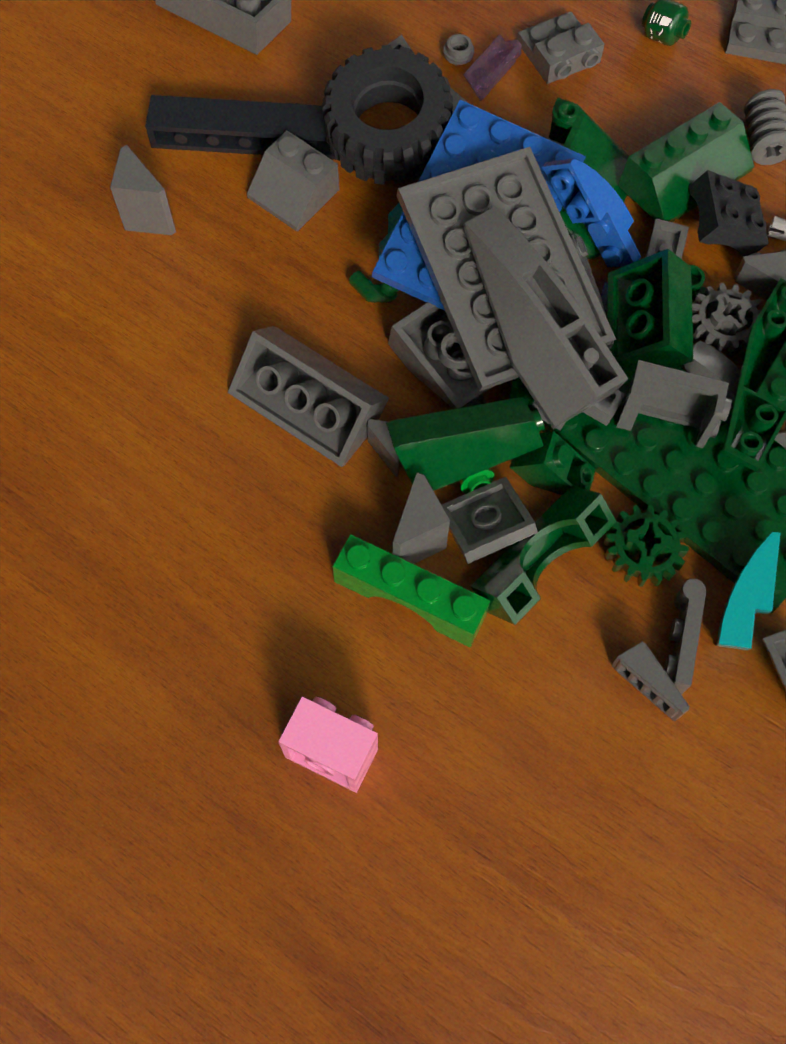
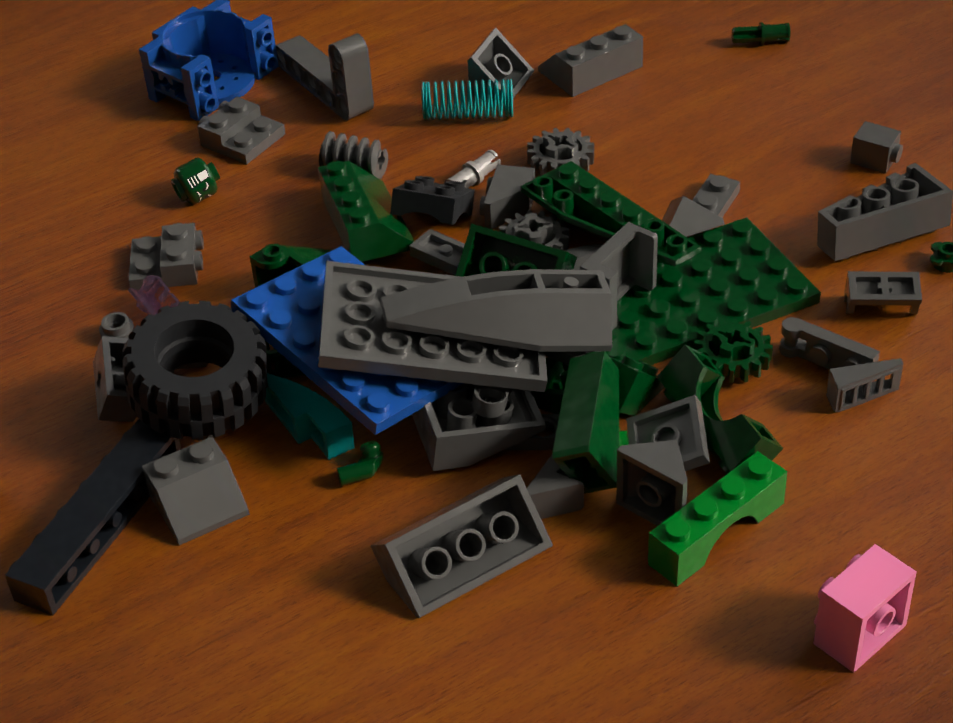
camera: 65 degrees left, 25 degrees down
(140, 197) = (138, 614): dark grey slope -> none
(597, 205) = (384, 251): blue slope -> none
(750, 595) = (807, 292): teal slope -> none

